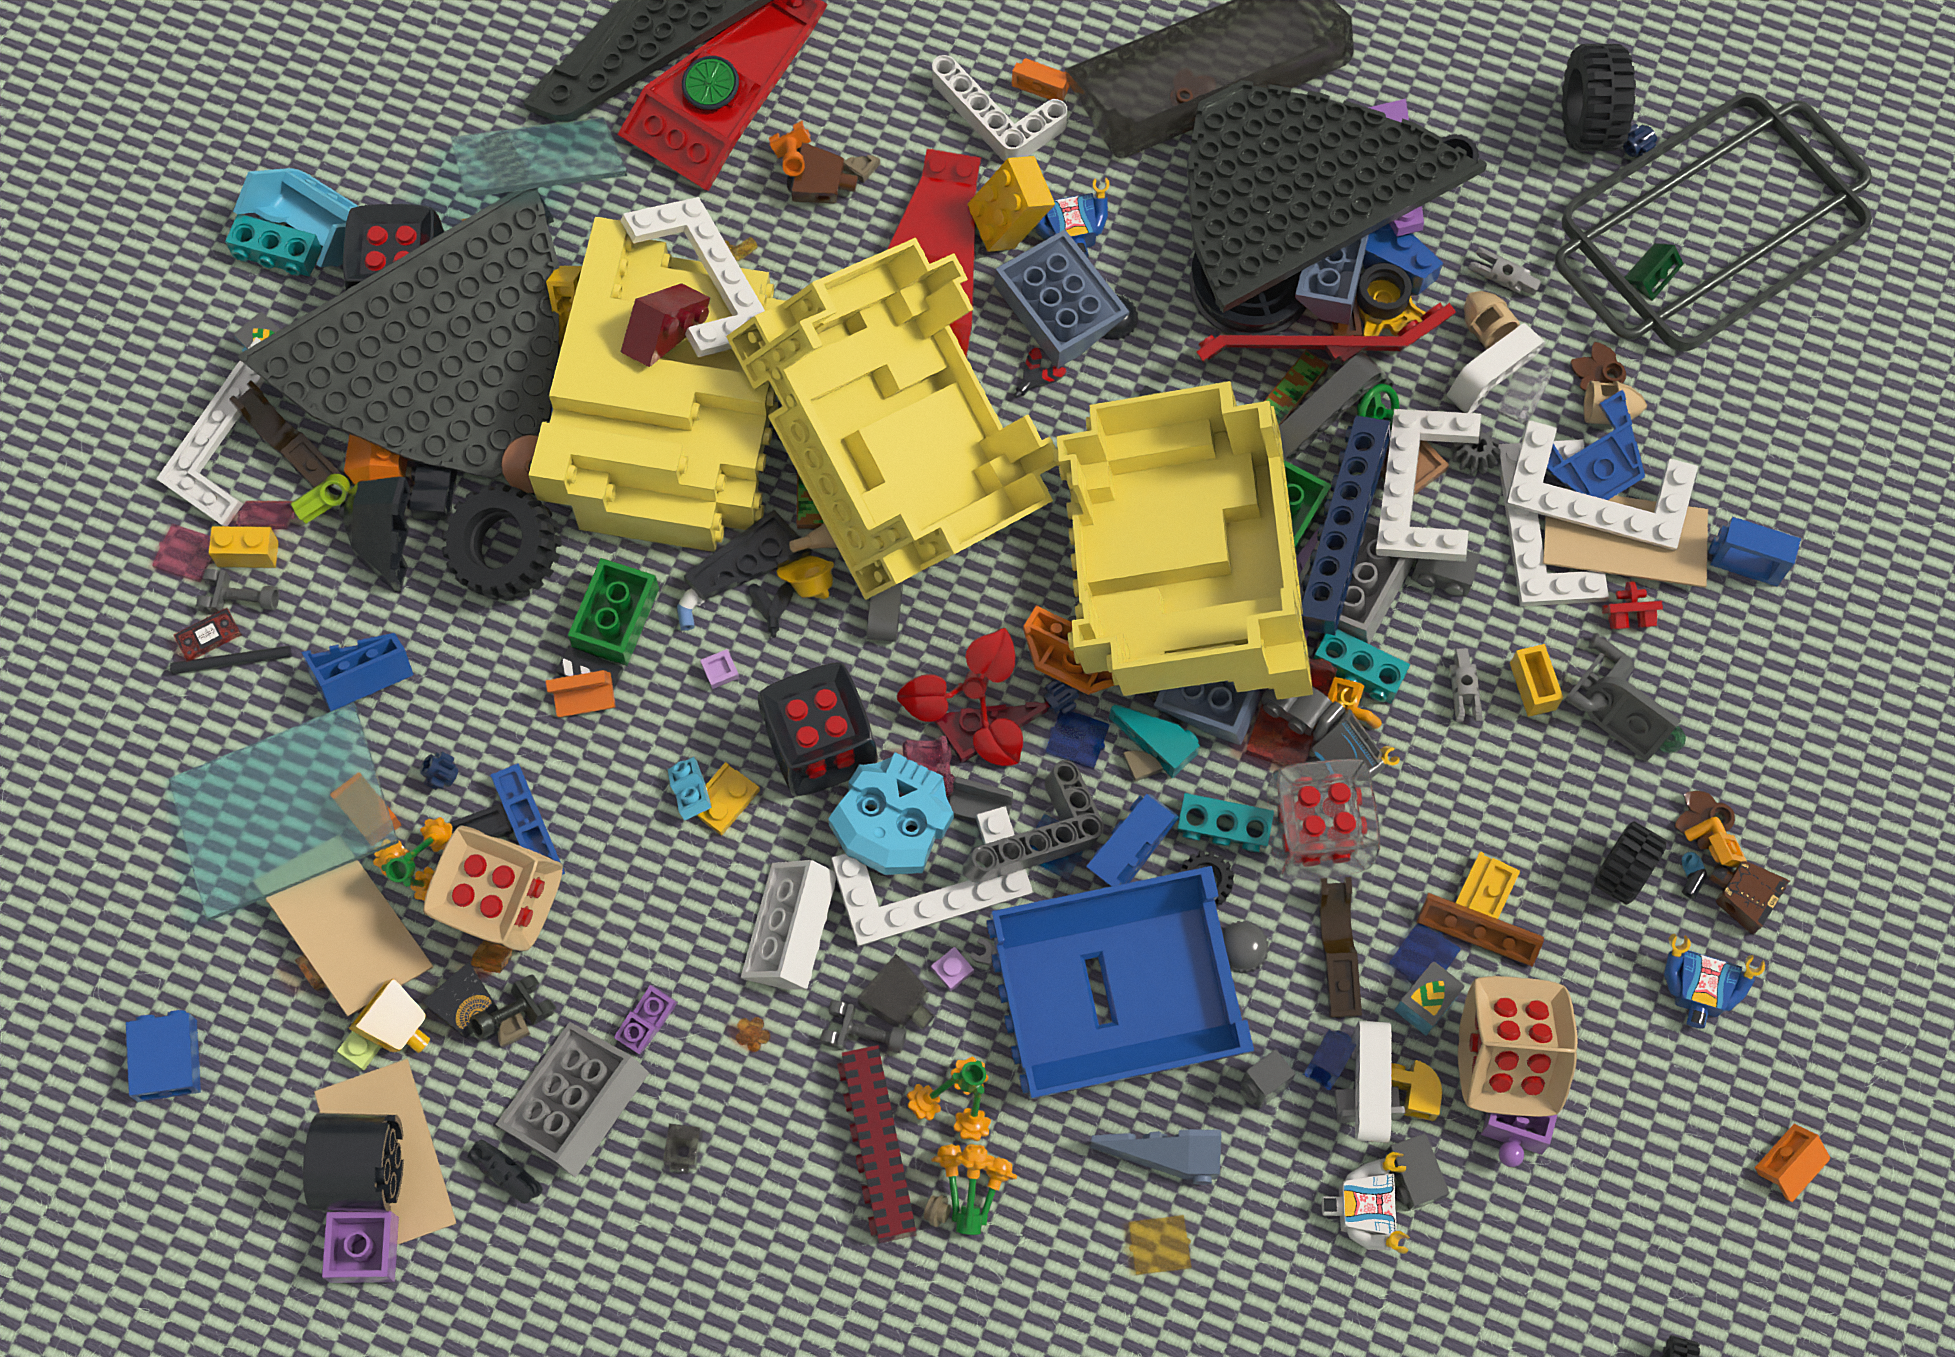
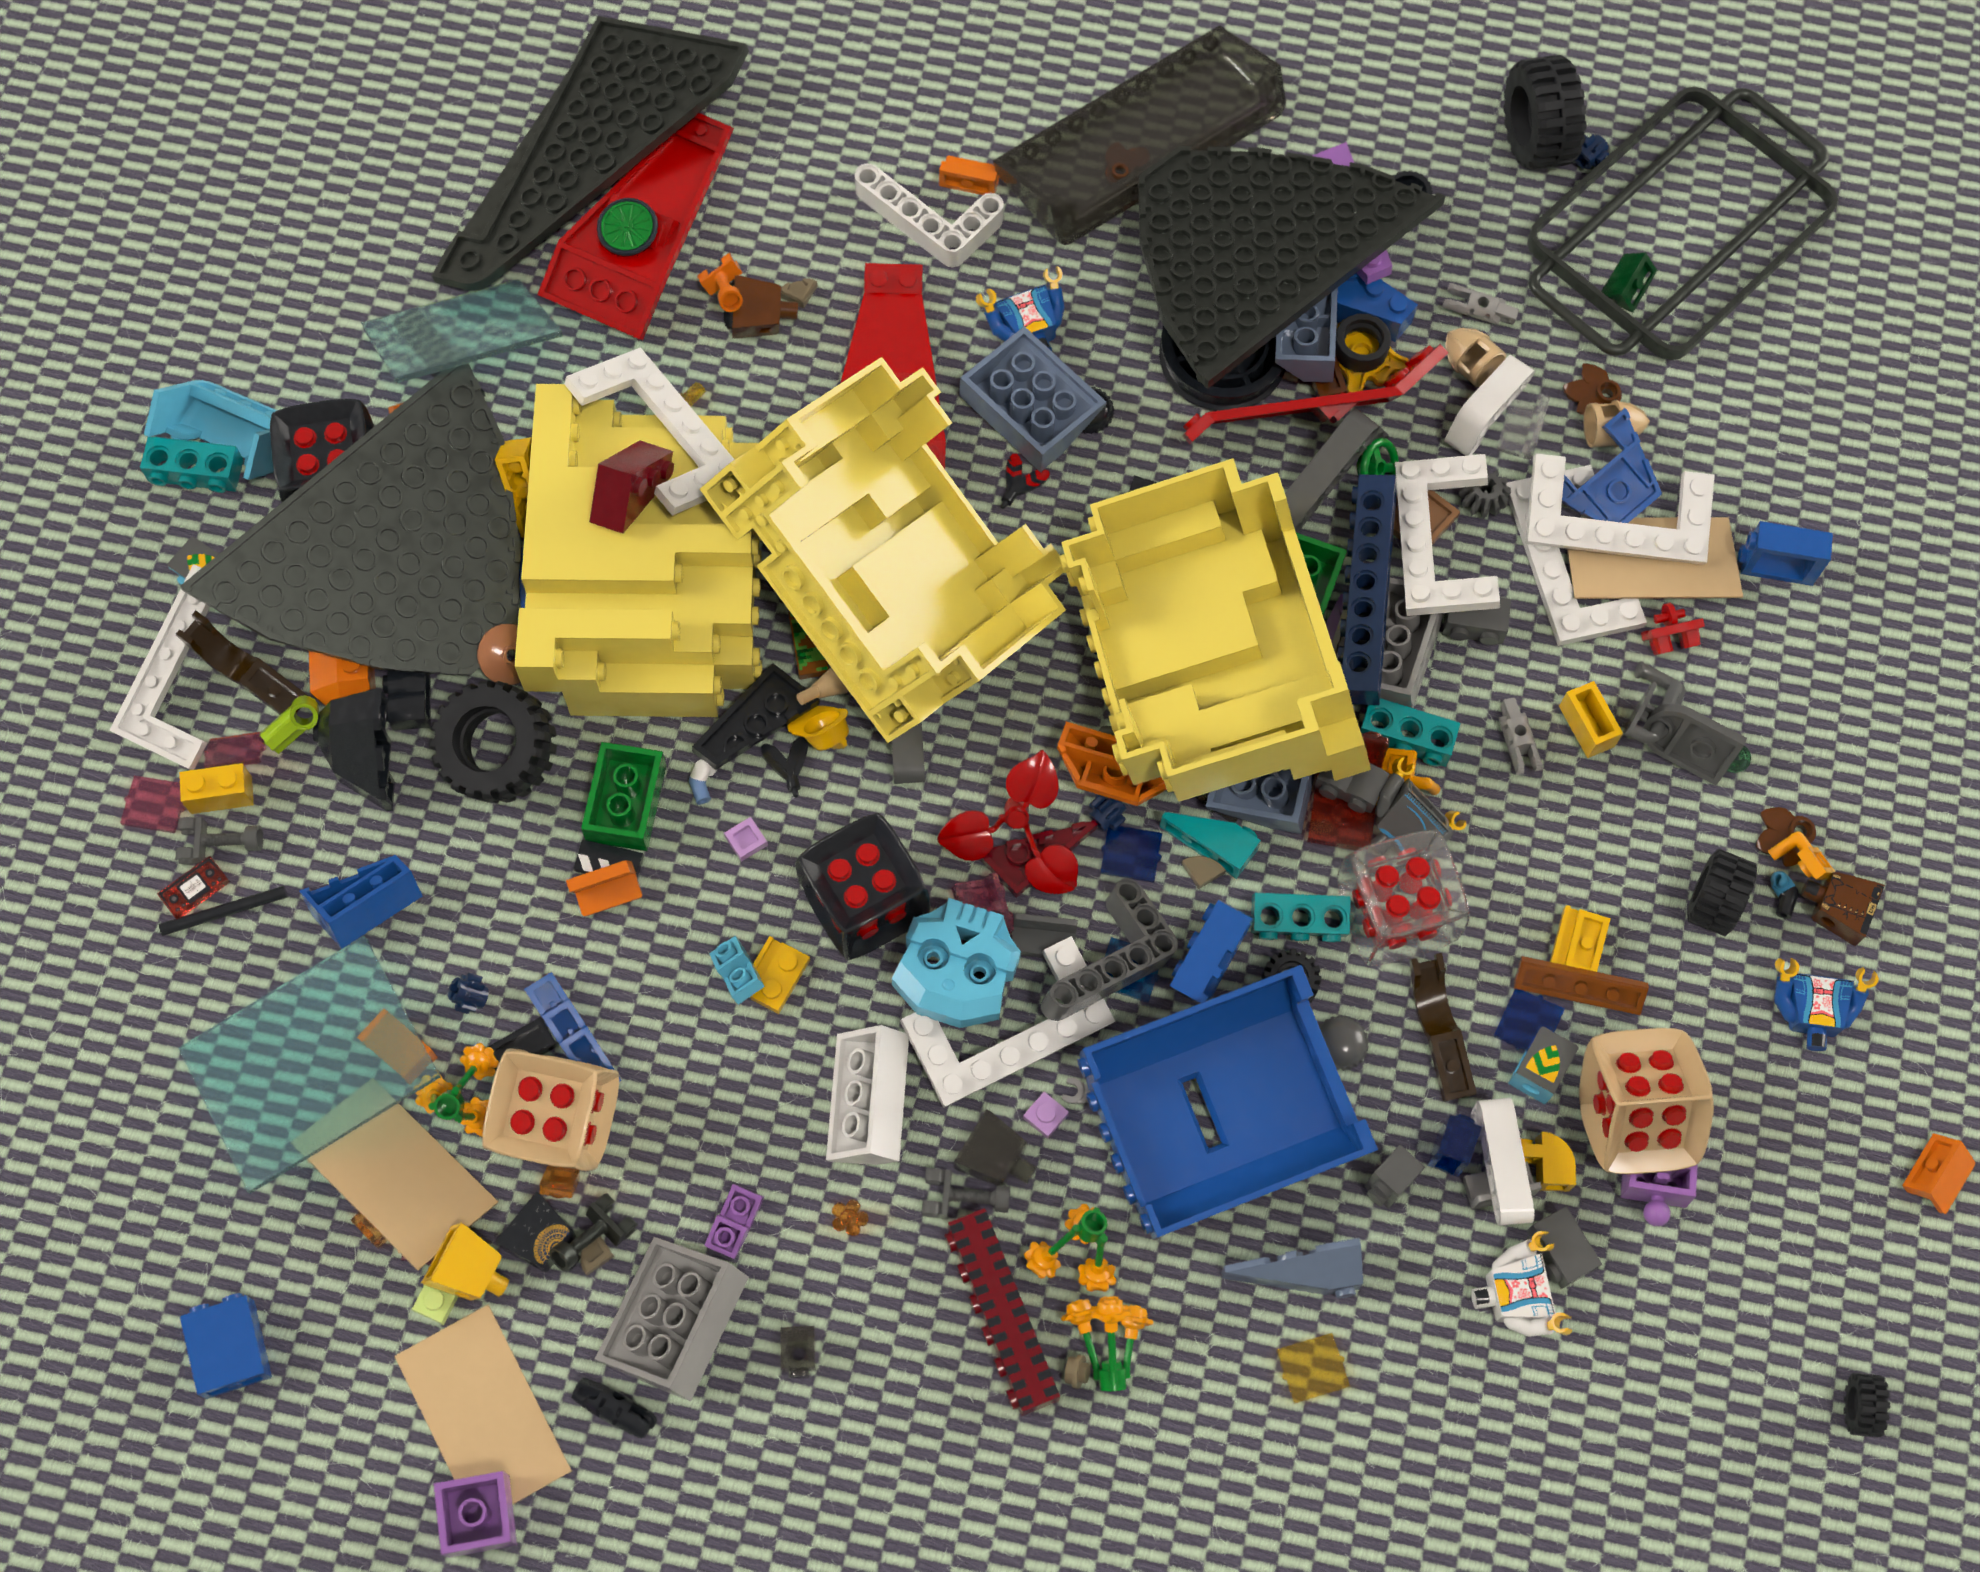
camera: 10 degrees left, 0 degrees up
(353, 1162) = (452, 1425): black brick -> none
(1011, 203) = (964, 307): yellow brick -> none
(1296, 385) = (1290, 450): tile -> none

